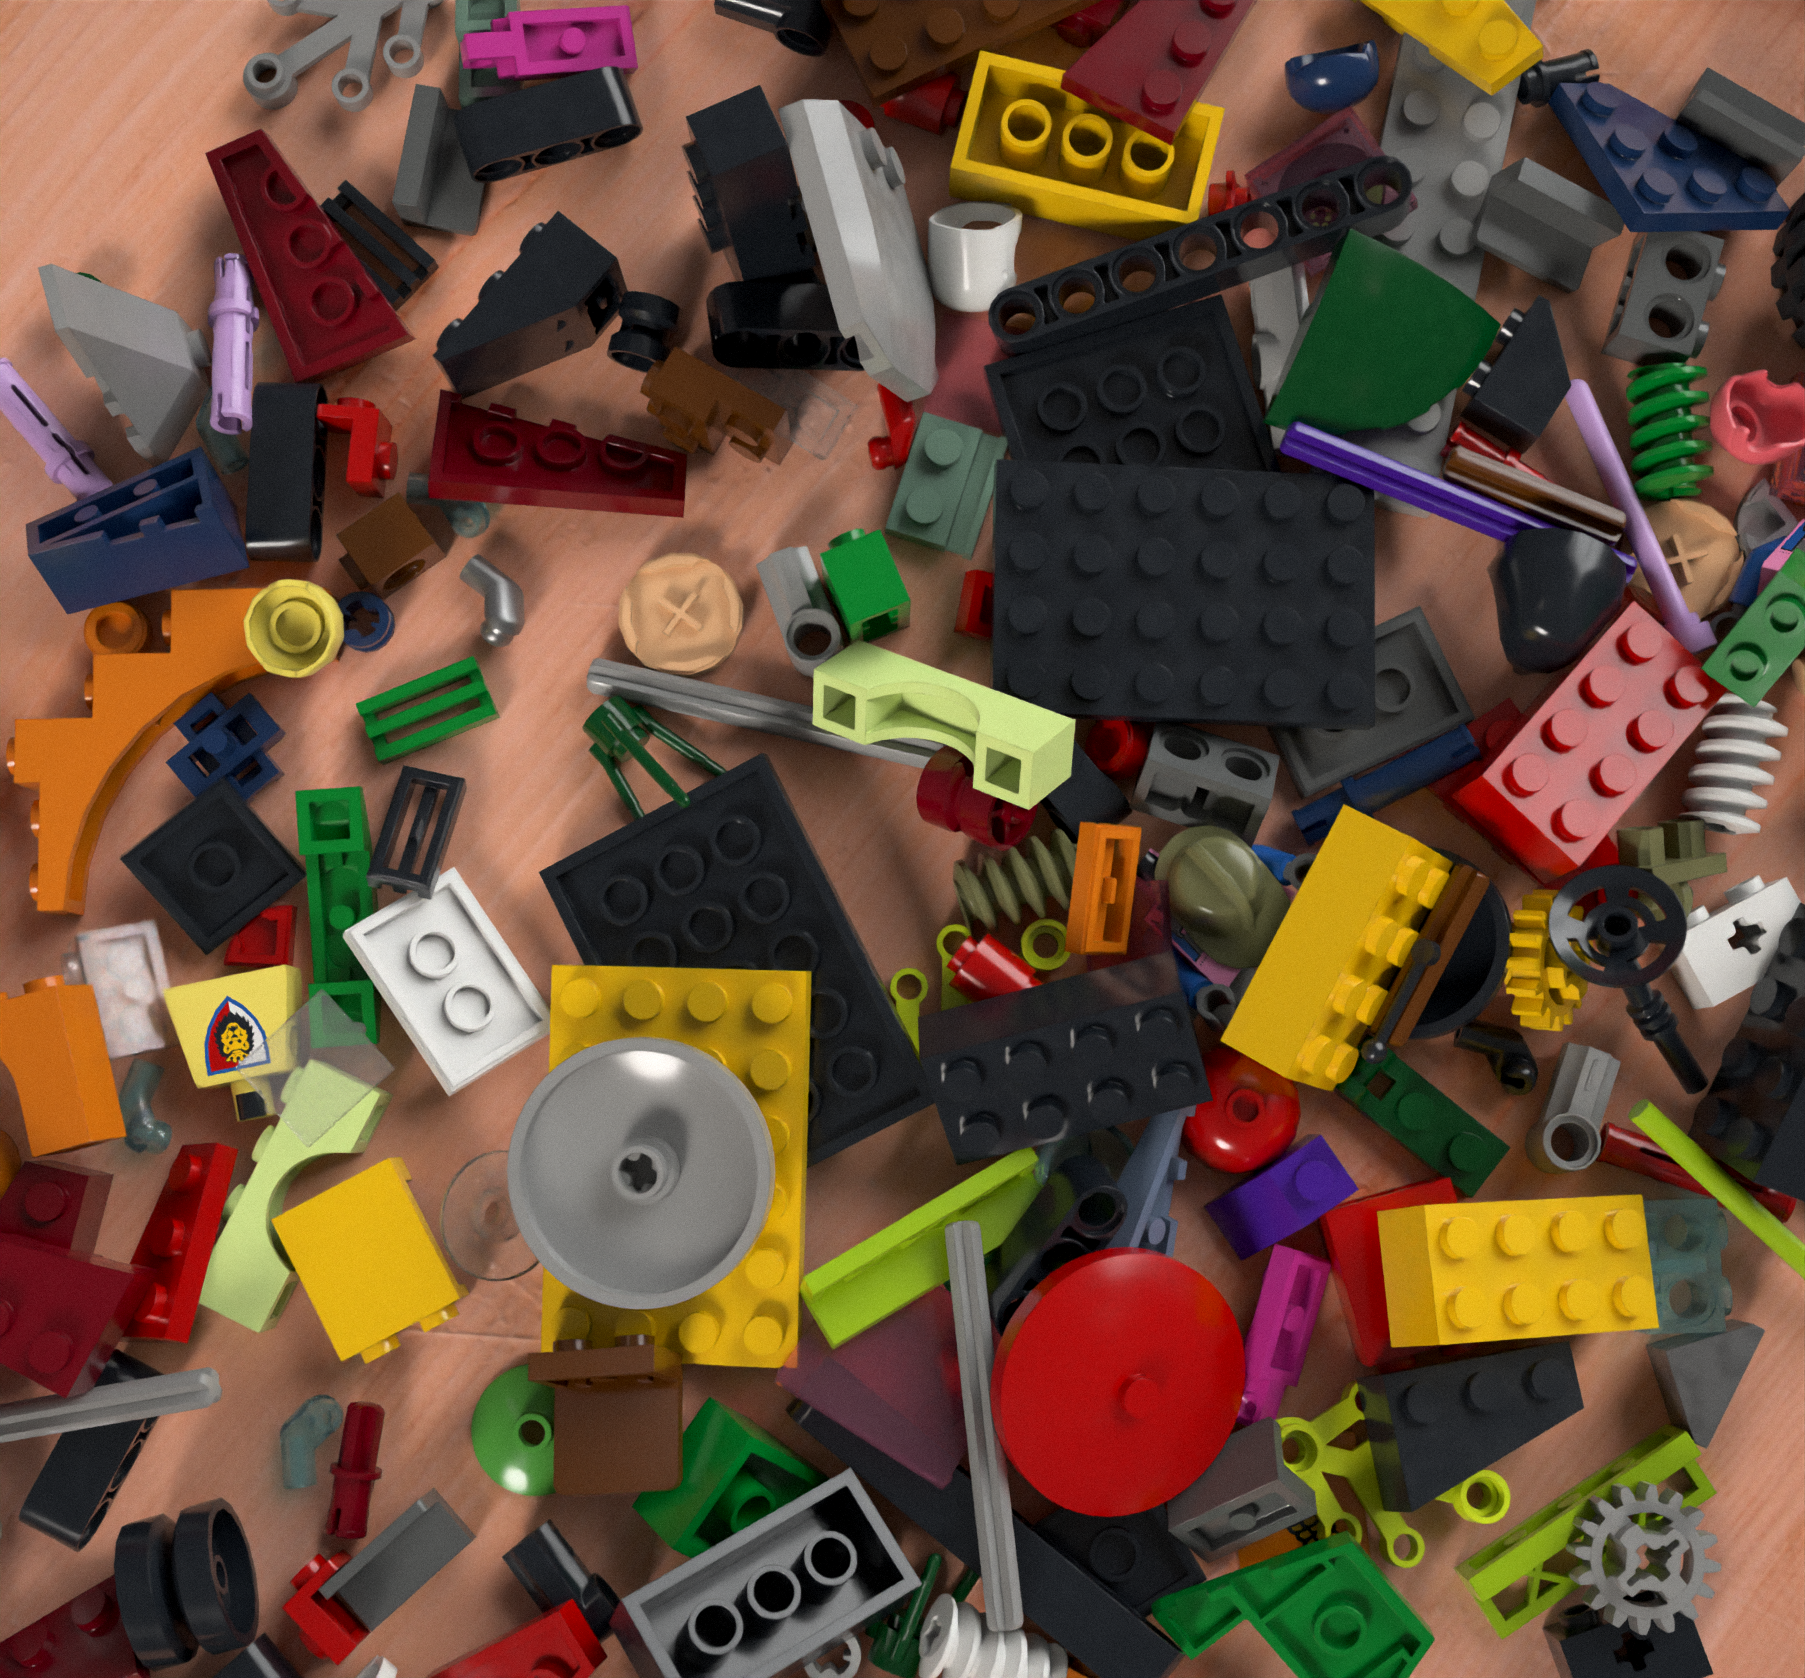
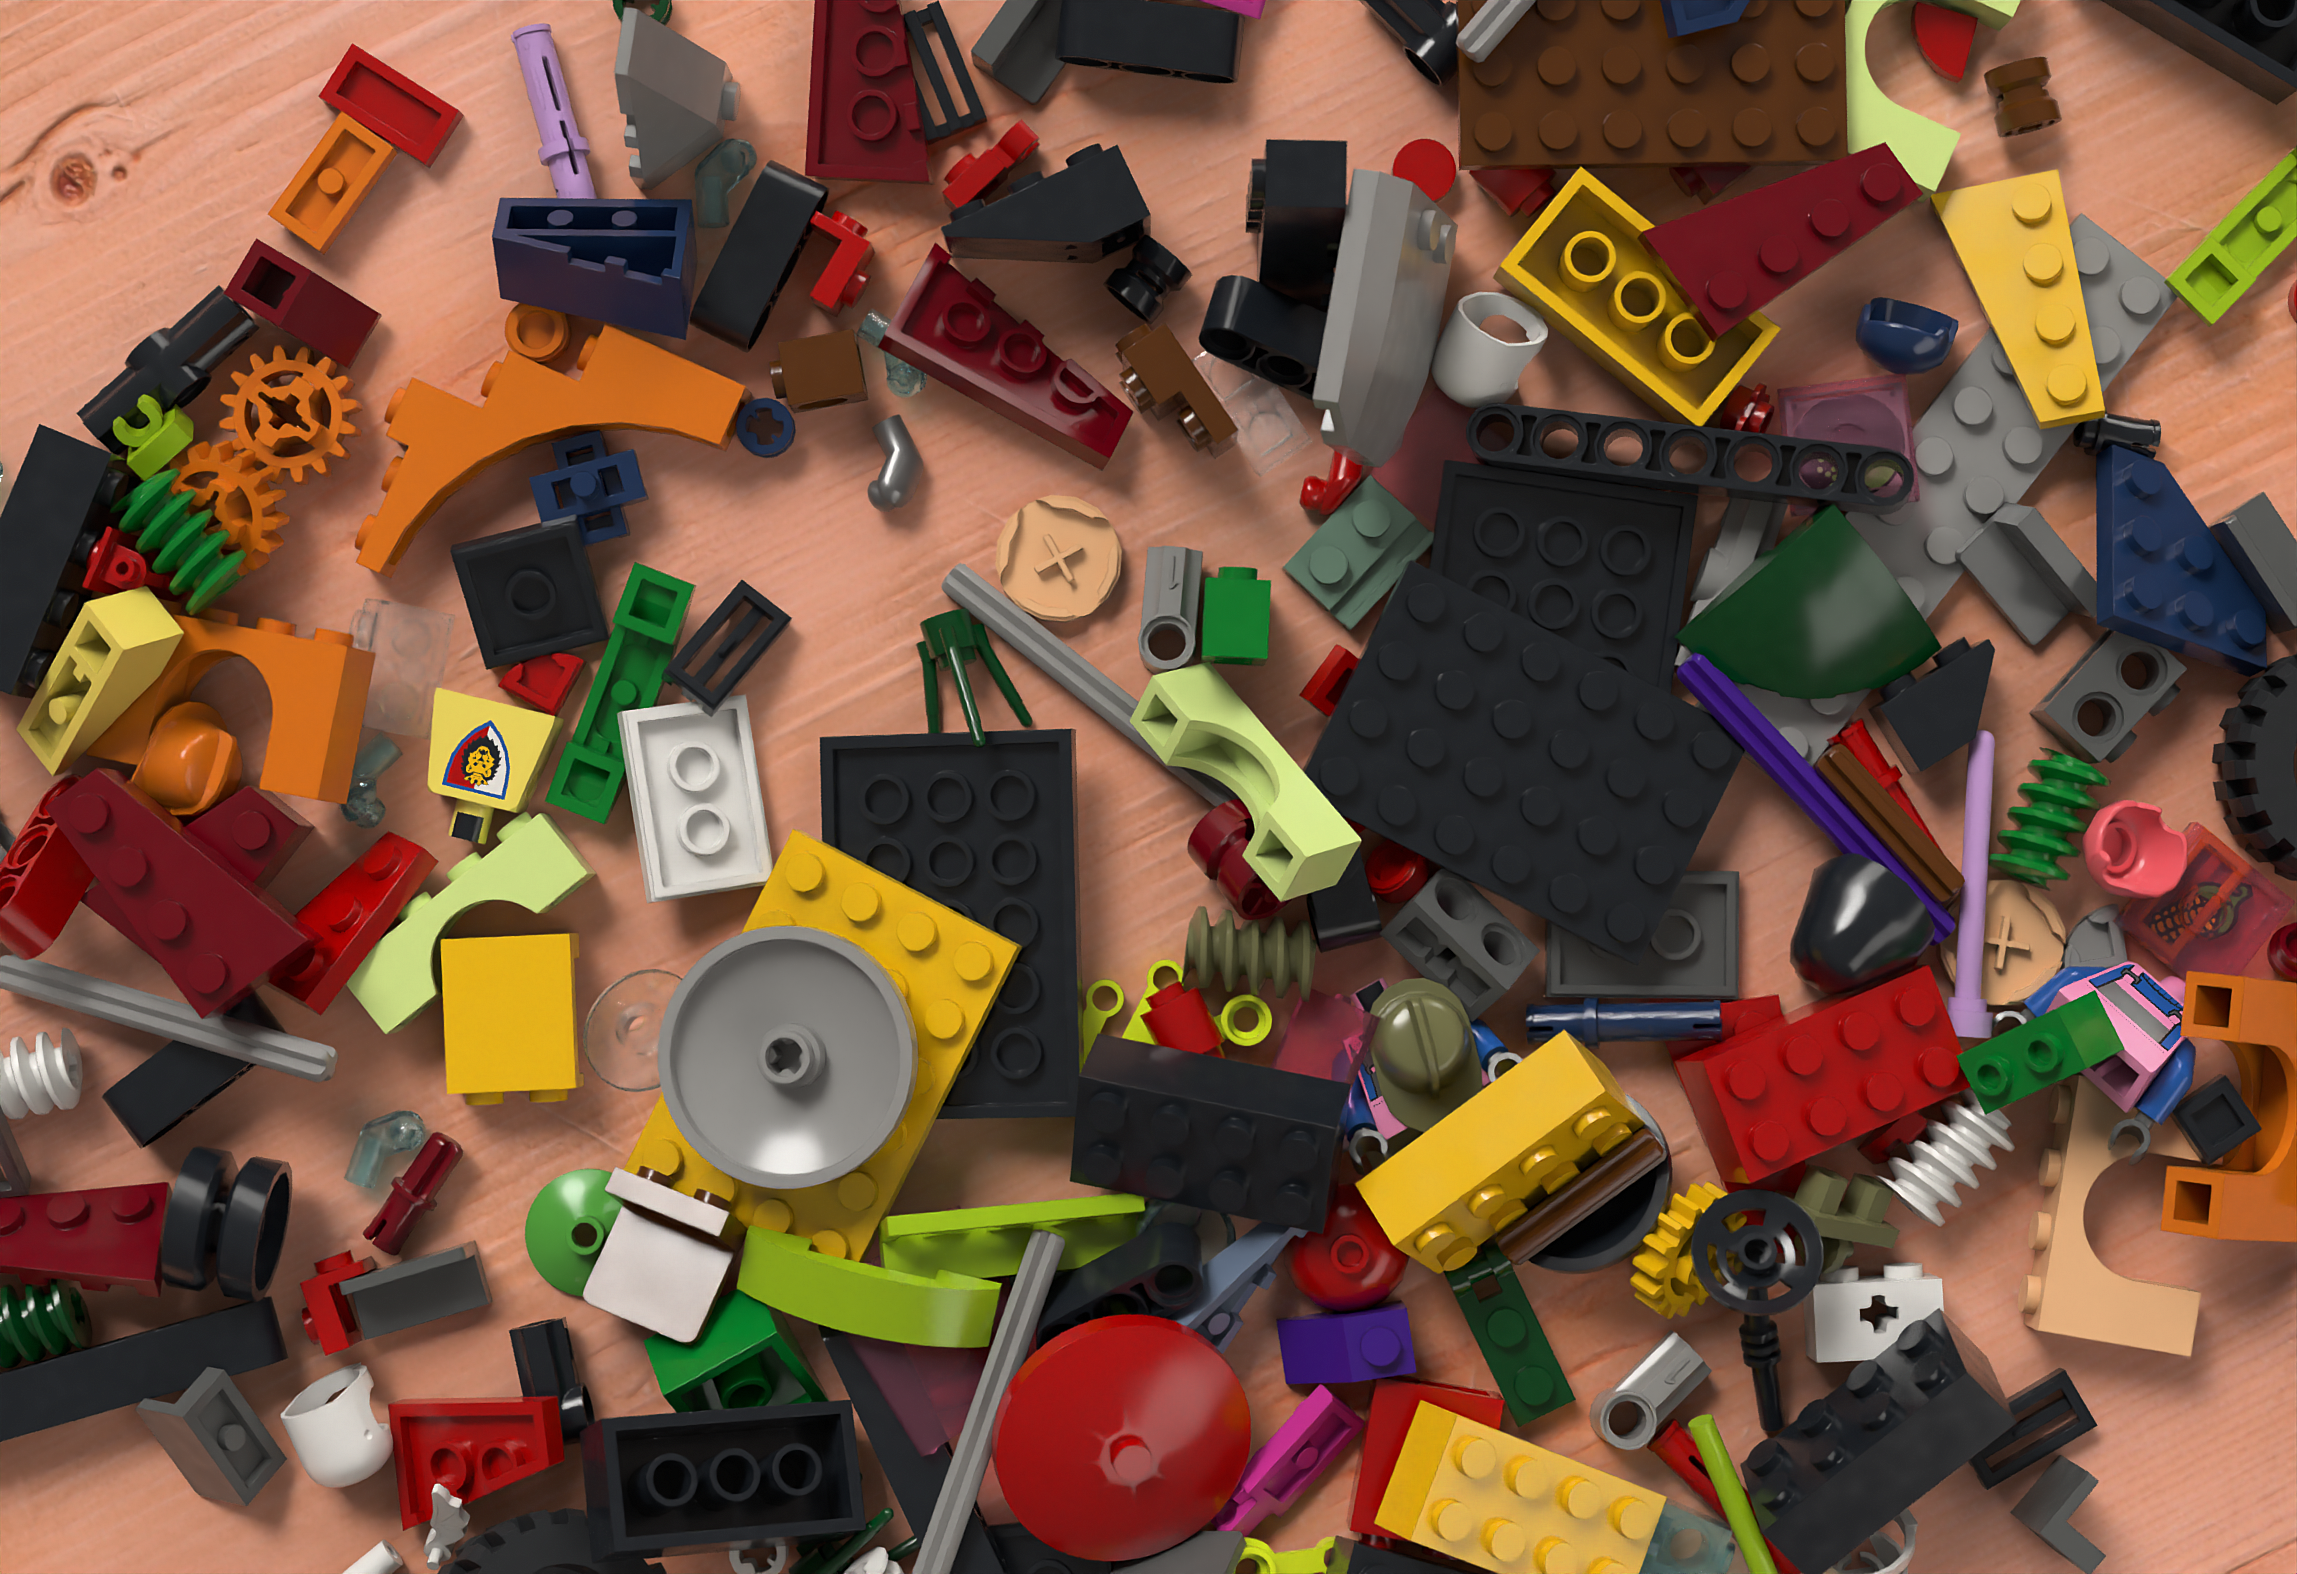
camera: 25 degrees right, 5 degrees up
(233, 325) = (772, 94): lavender pin -> none
(294, 628) = (701, 418): light yellow hair -> none
(315, 1068) = (540, 823): clear piece -> none
(417, 688) = (732, 534): green tile -> none
(458, 295) = (979, 177): none -> red plate
(818, 1363) = (866, 1297): none -> lime slope
(1103, 889) = (1314, 993): orange tile -> none
(1424, 954) = (1573, 1194): black hinge -> none
(1505, 1052) = (1614, 1313): black arm -> none
(1665, 785) = (1887, 1137): none -> red tile

